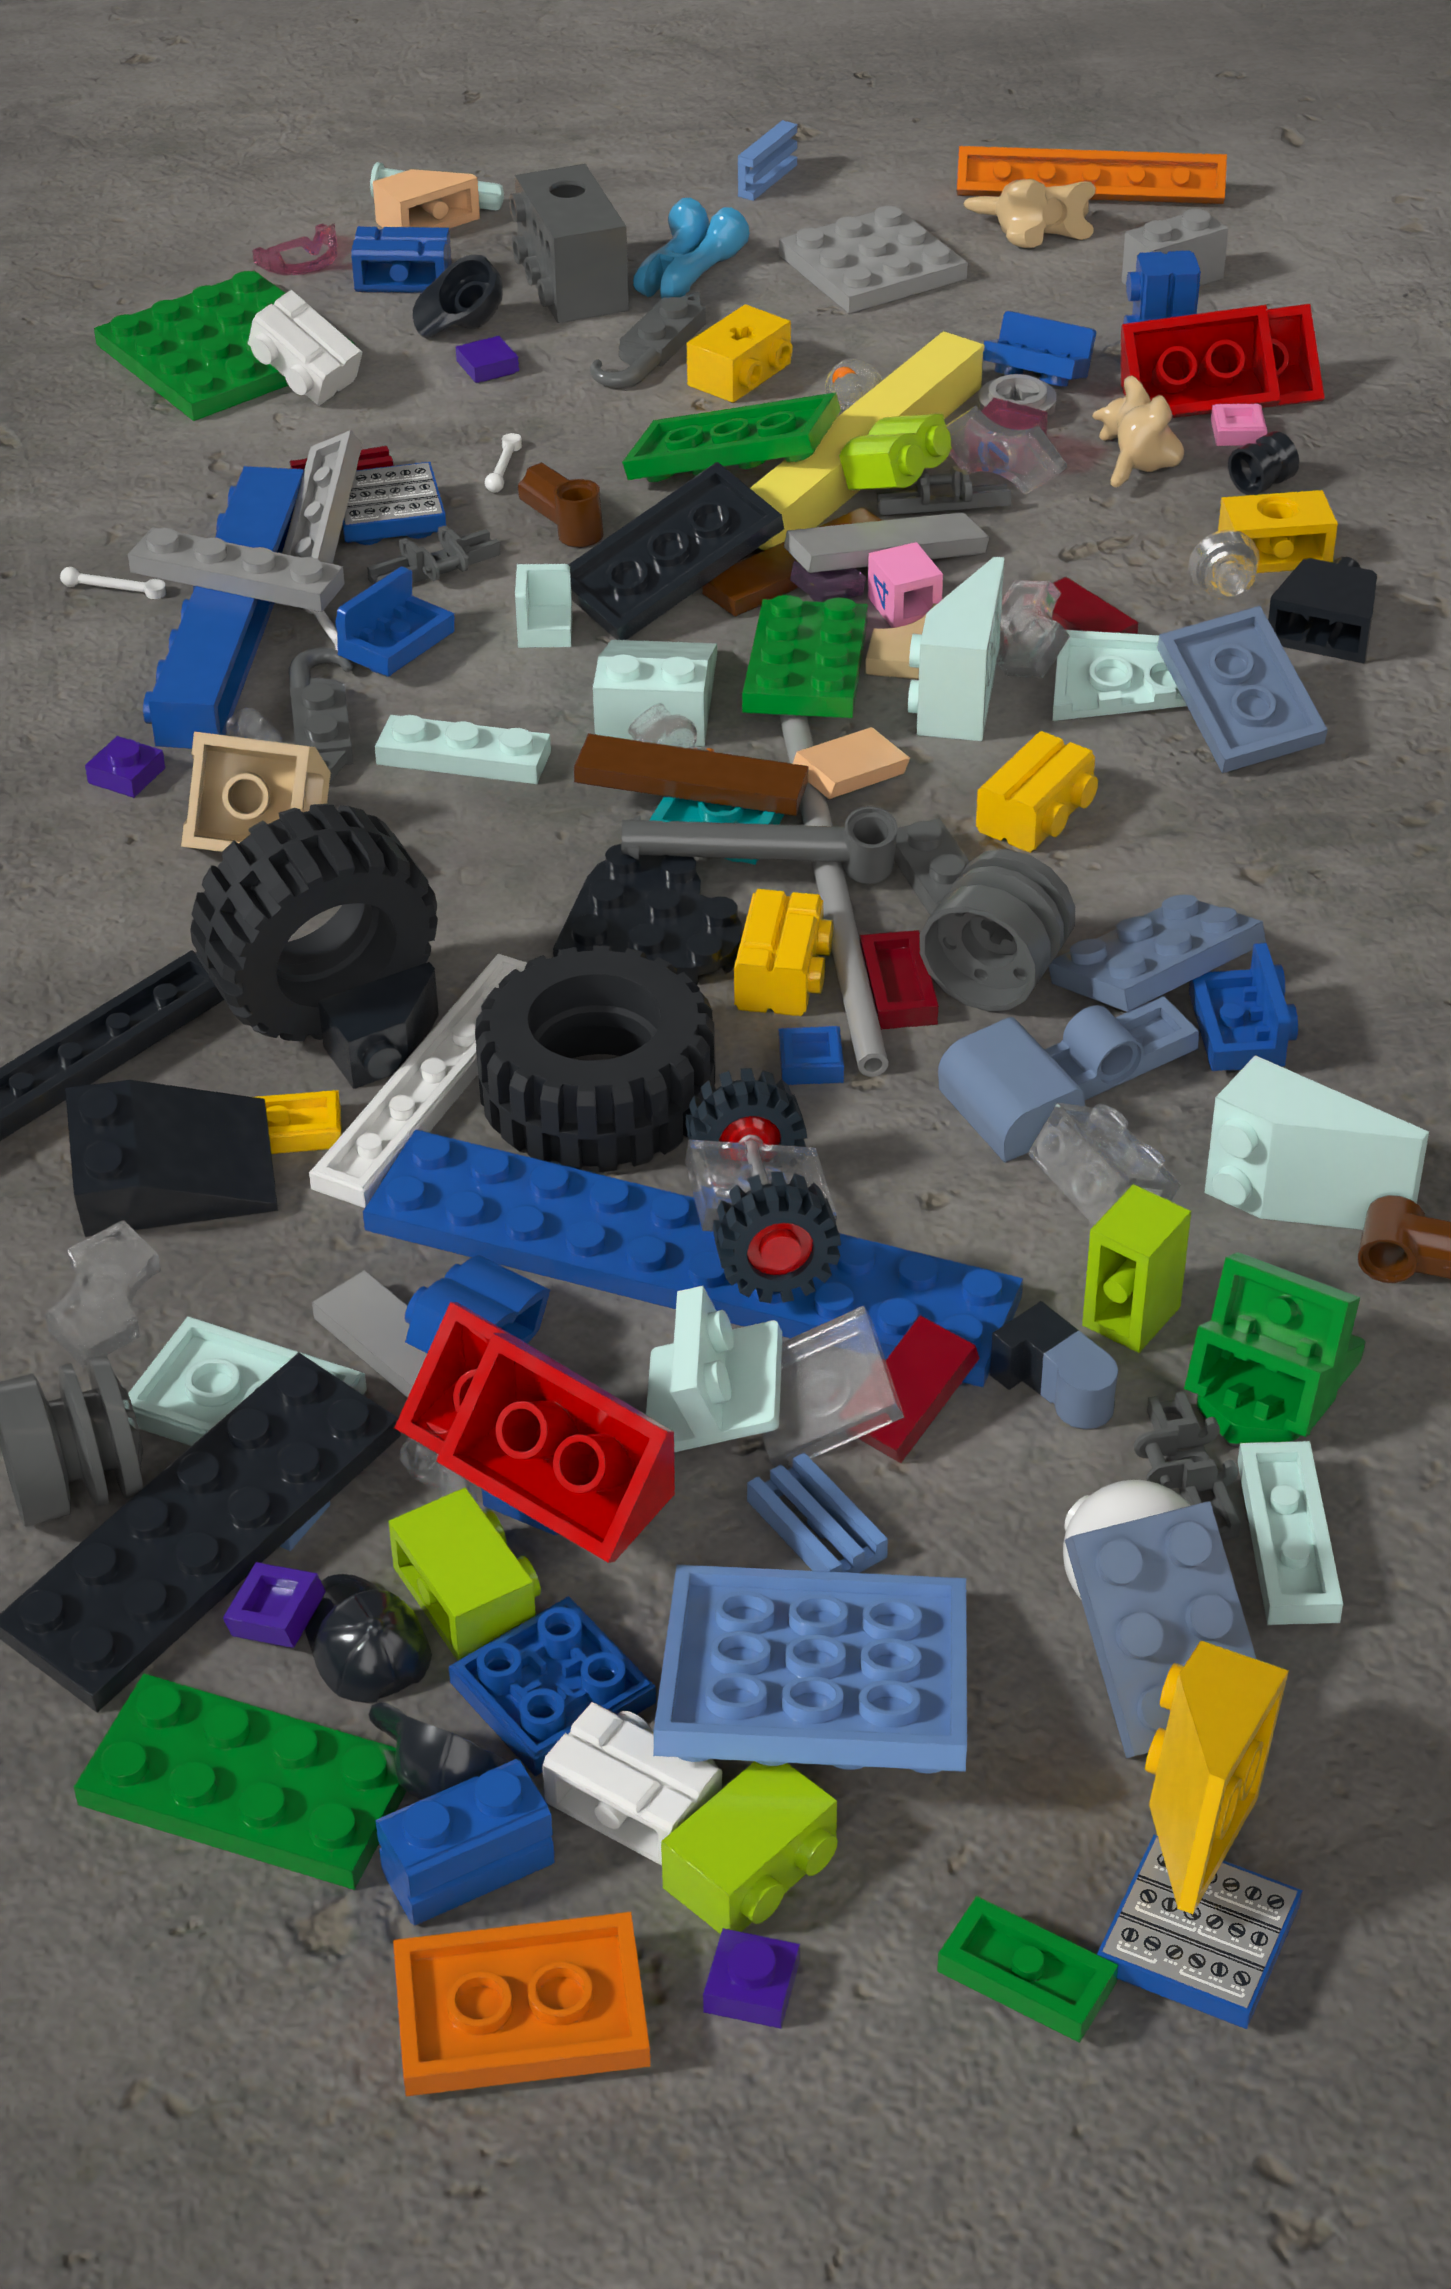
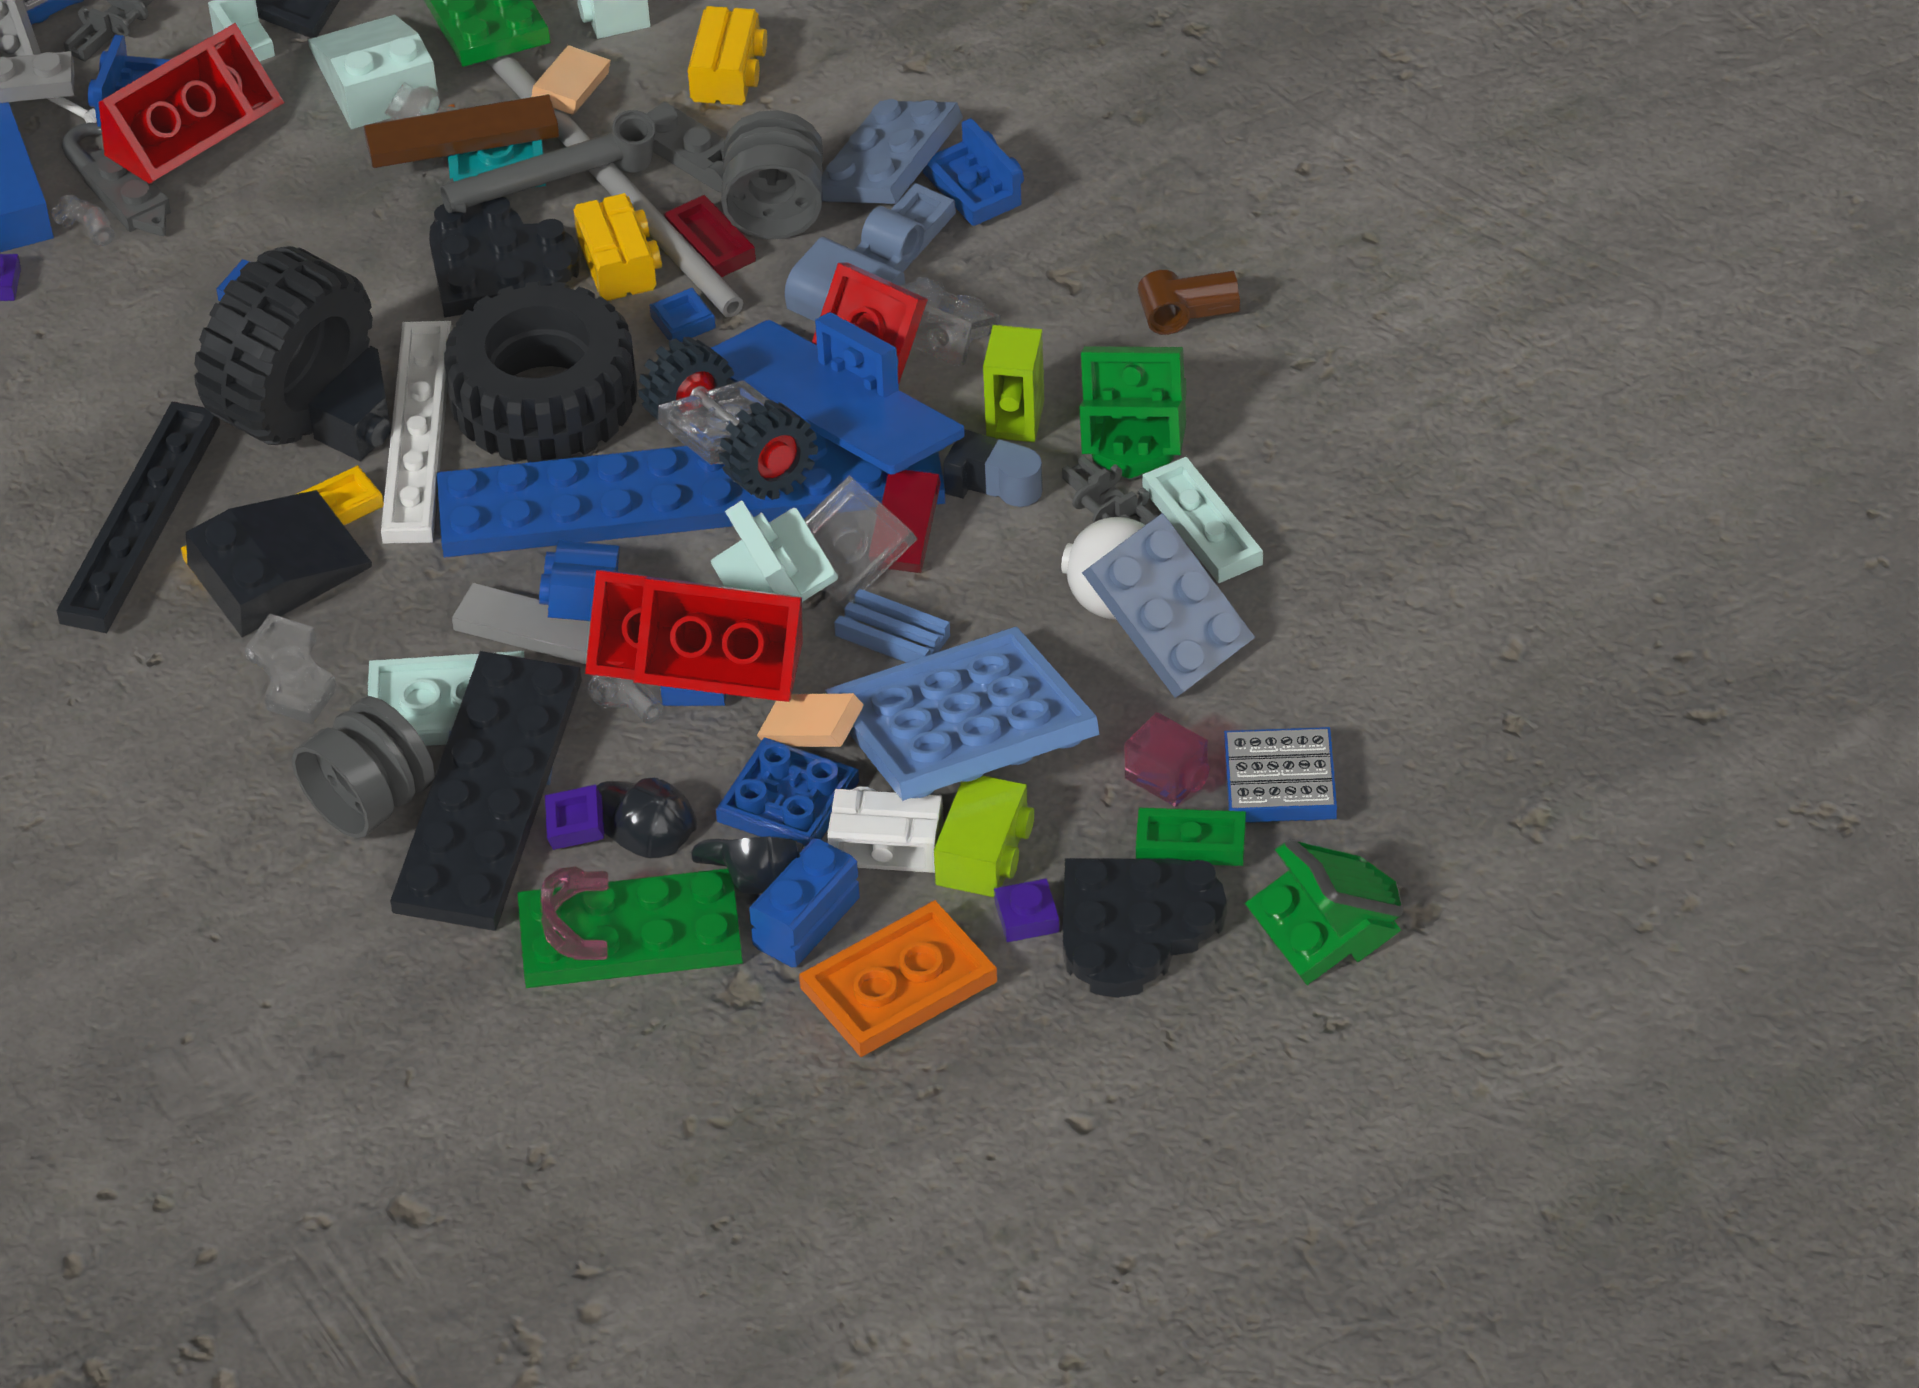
camera: 25 degrees left, 5 degrees up
(138, 1717) = (574, 881): none -> clear pink helmet
(247, 782) = (131, 267): tan slope -> none
(425, 655) = (186, 105): none -> red slope
(463, 749) = (254, 170): light aqua plate -> none
(463, 1571) = (687, 749): lime brick -> none
(629, 1598) = (812, 720): none -> light nougat tile
(887, 2054) = (1133, 916): none -> black plate
(919, 1204) = (841, 389): none -> blue bracket
(1002, 1138) = (876, 307): none -> red plate
(1055, 1842) = (1166, 759): none -> clear pink brick
(1155, 2164) = (1326, 908): none -> green piece
(1210, 1760) = (1240, 671): yellow slope -> none
(1307, 1150) = (1083, 260): light aqua slope -> none

